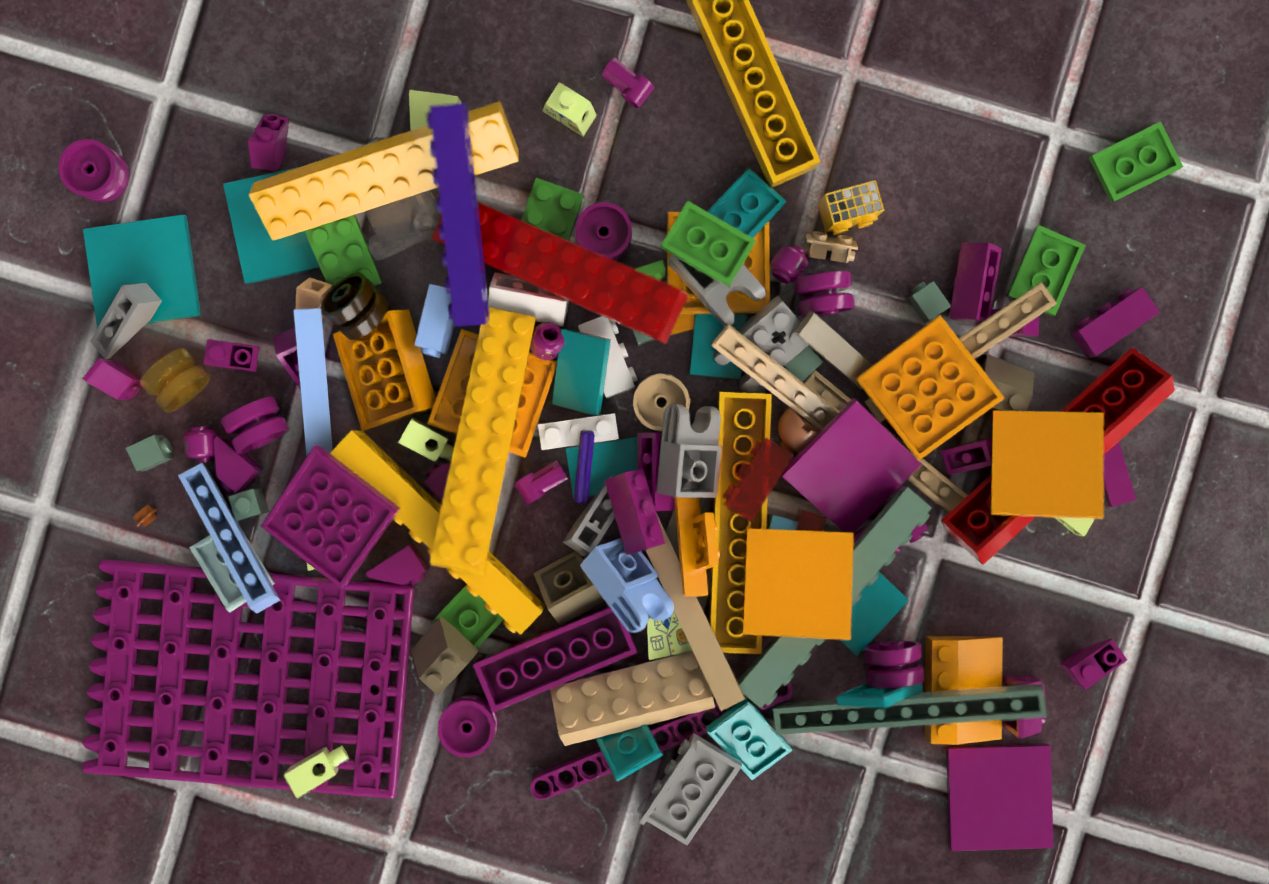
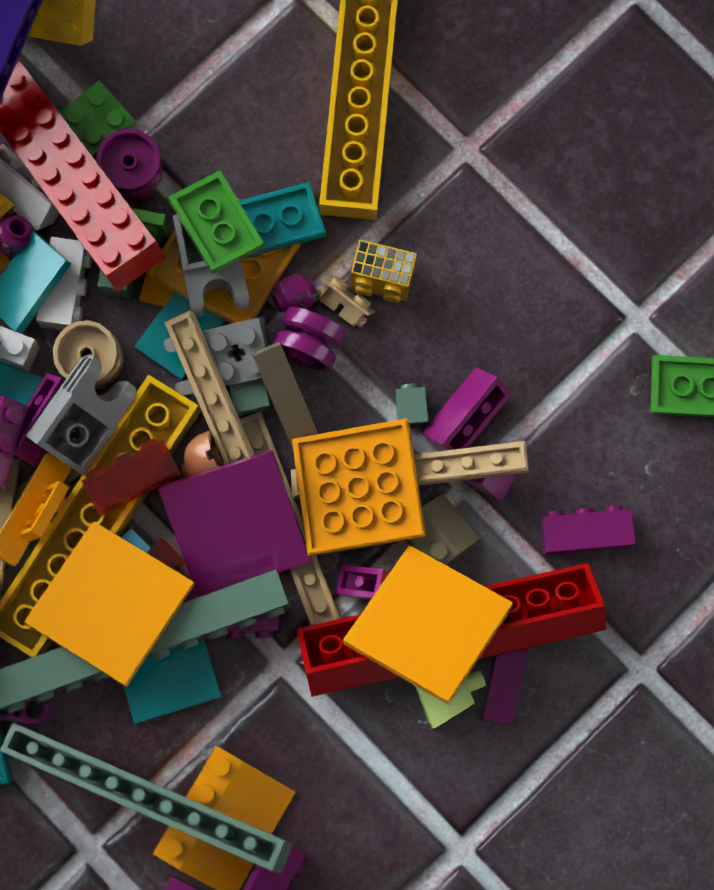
camera: 25 degrees right, 10 degrees down
(569, 109) = (165, 31): yellowish green torso -> none
(633, 87) = (241, 46): magenta piece -> none
(876, 697) = (127, 764): teal tile -> none
(893, 664) = (163, 748): magenta wheel -> none
(1048, 260) = (552, 440): bright green plate -> none
(1093, 663) = (372, 869): magenta slope -> none

